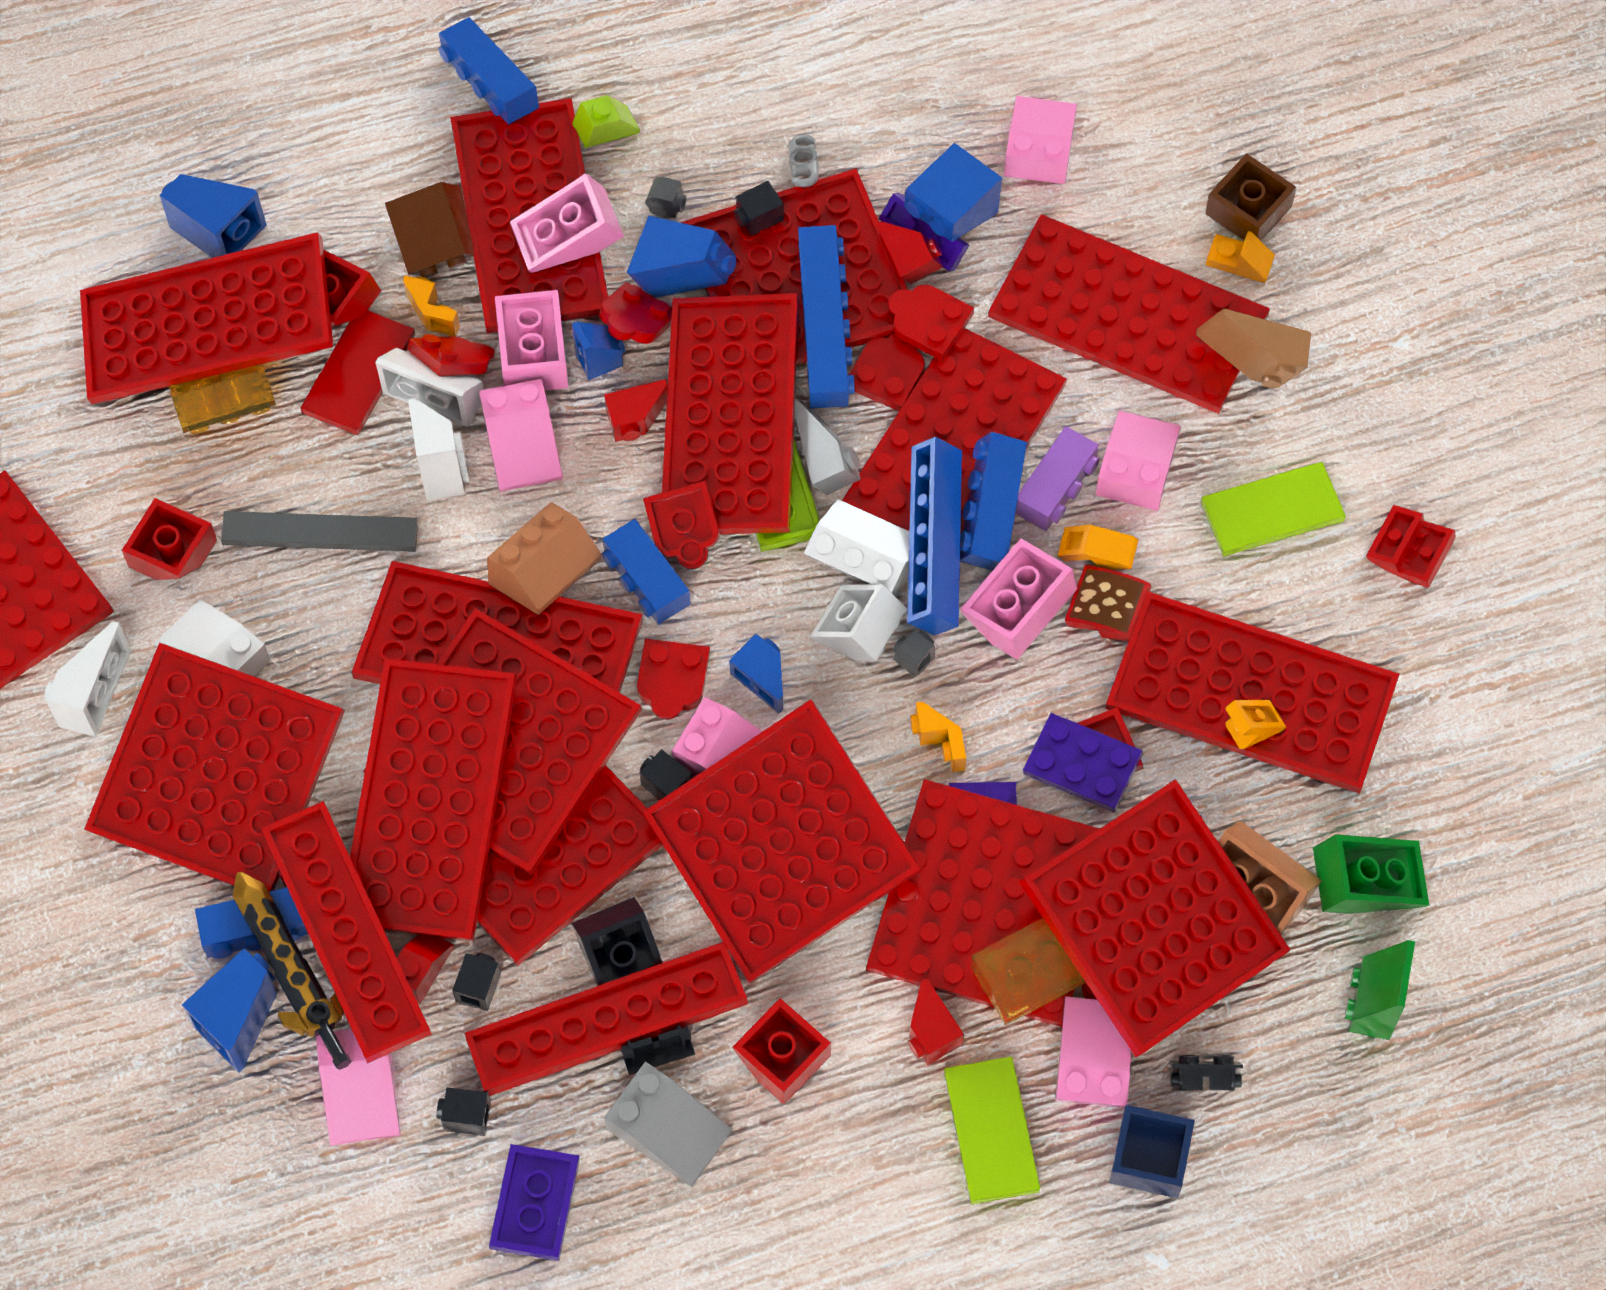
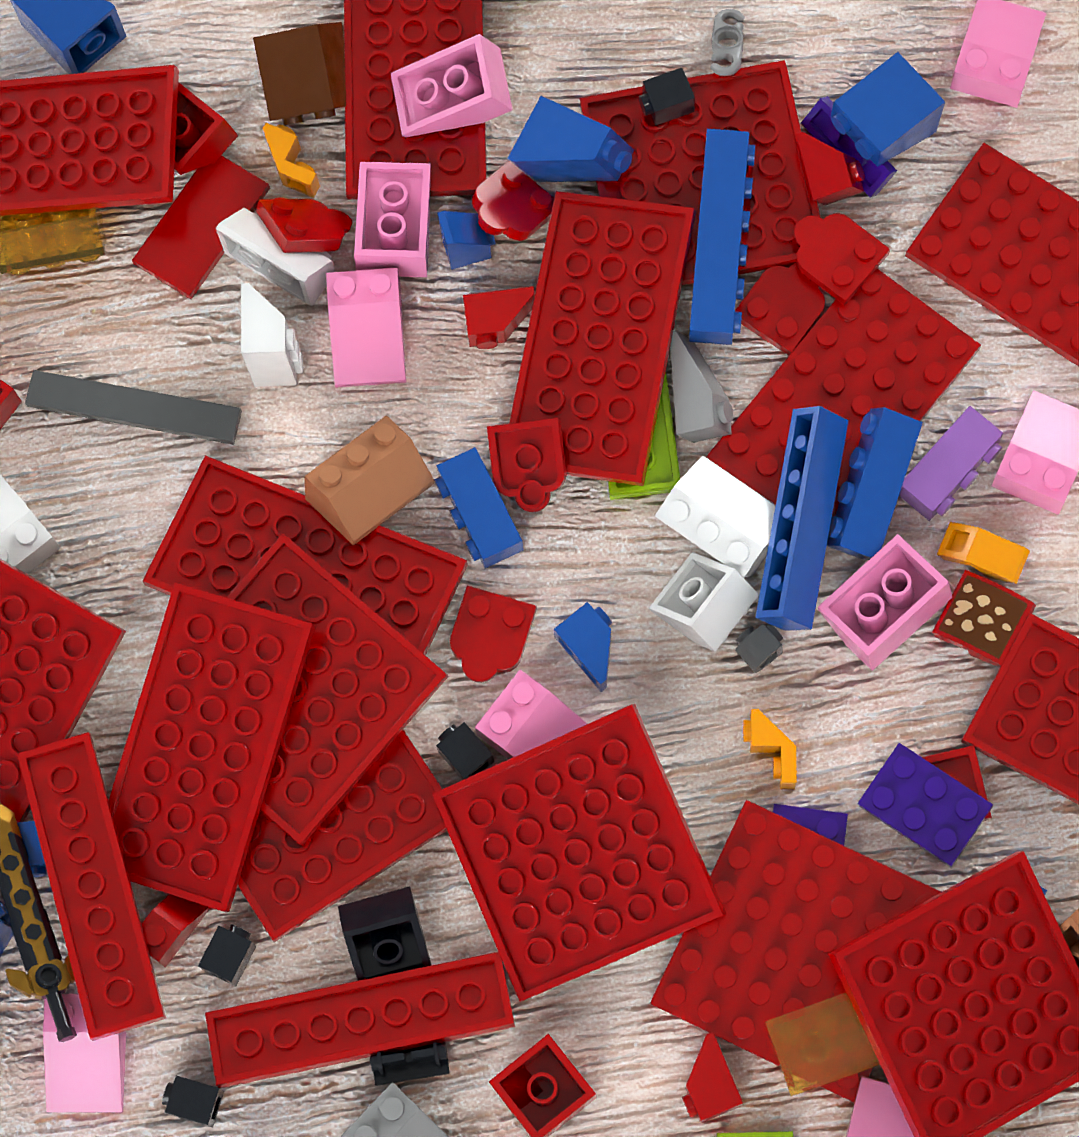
camera: 15 degrees right, 10 degrees up
(666, 197) = (567, 66): dark grey plate -> none

